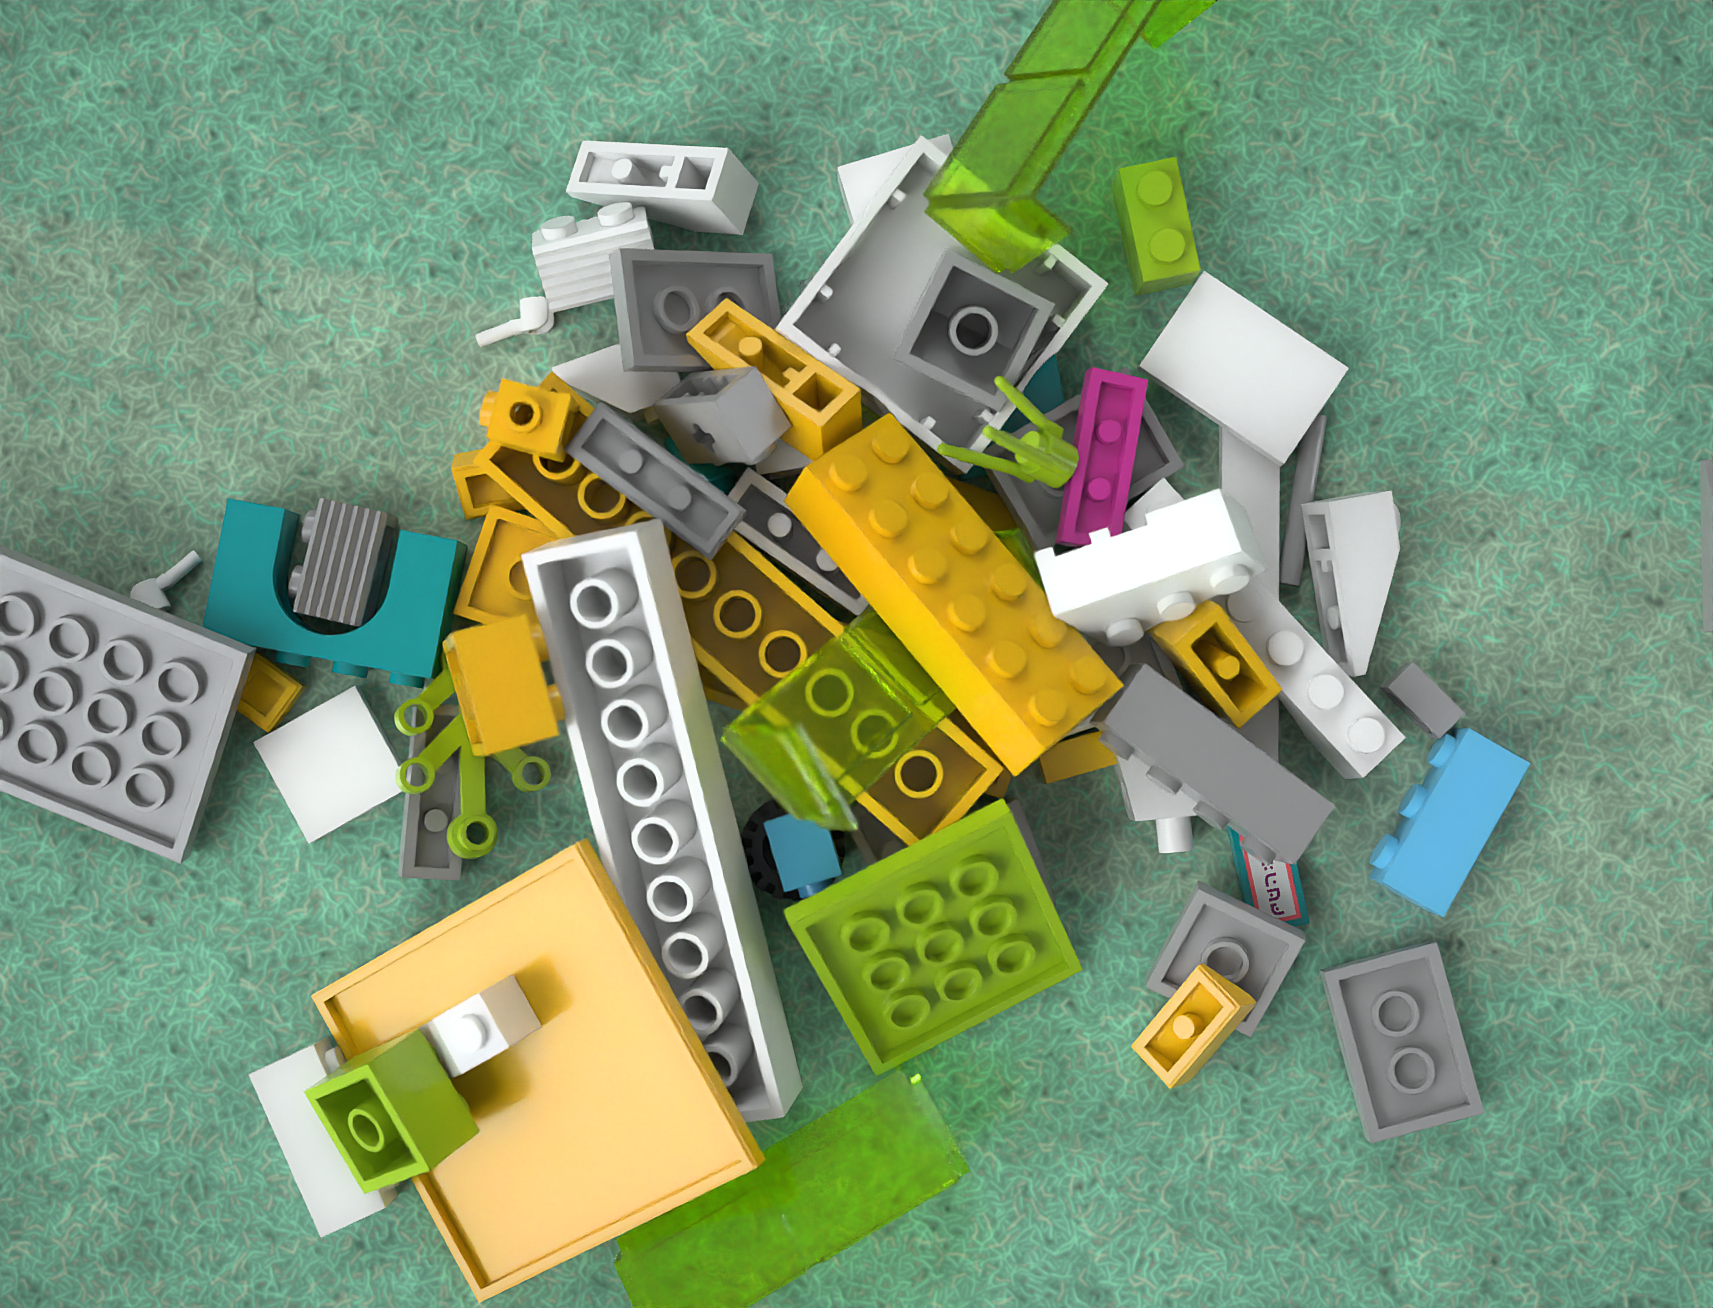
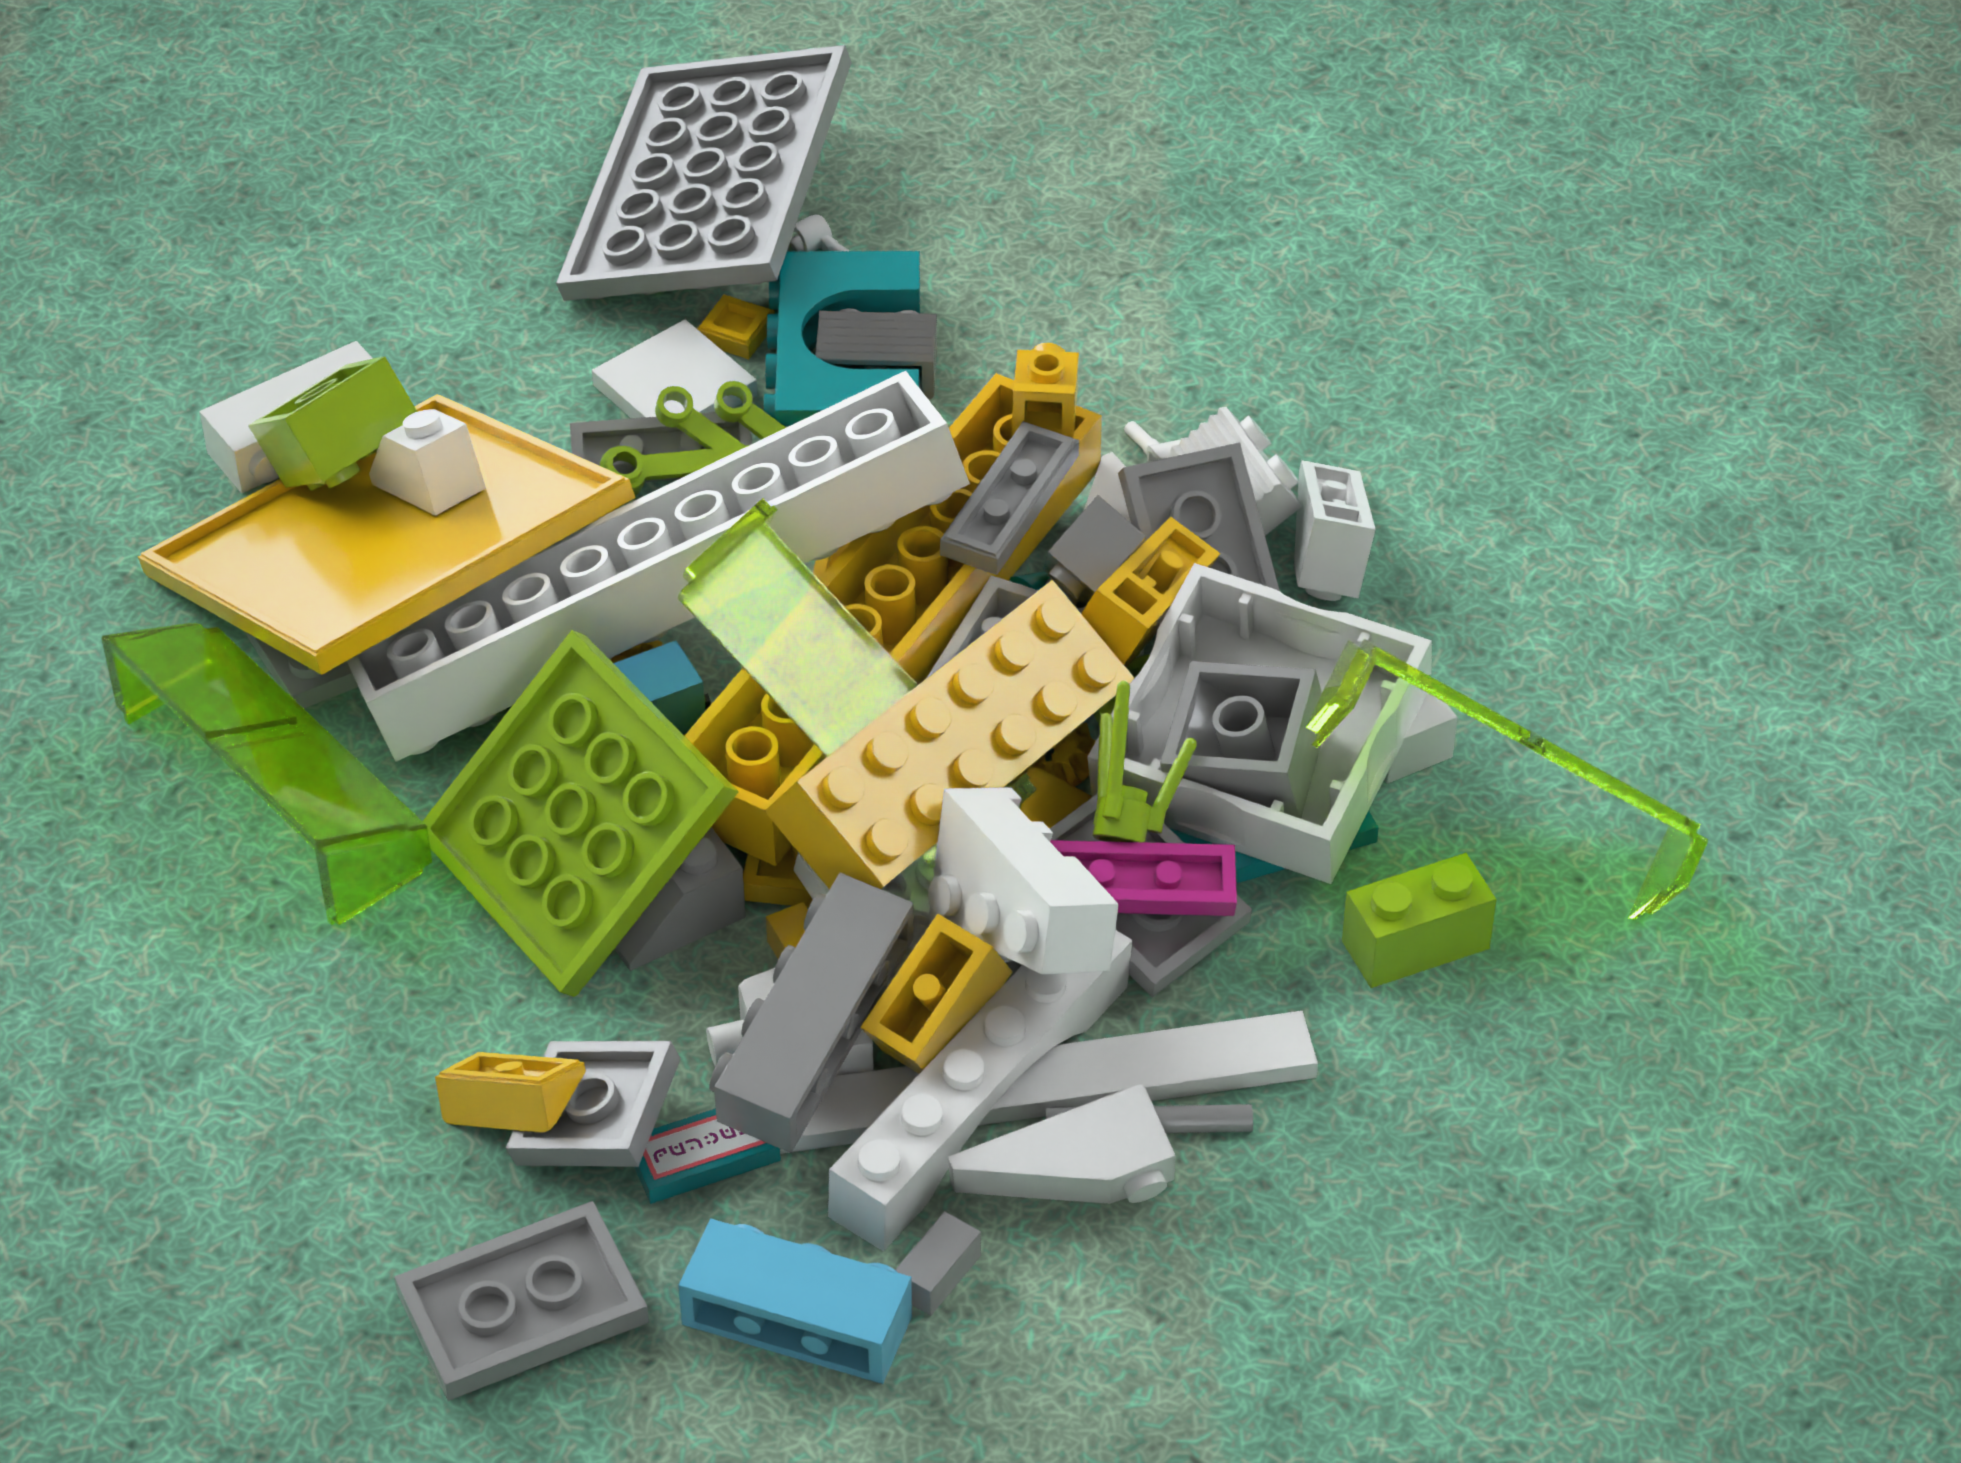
camera: 75 degrees right, 40 degrees down
(503, 685) = (768, 386): yellow brick -> none
(1242, 368) = (1281, 1021): white tile -> none

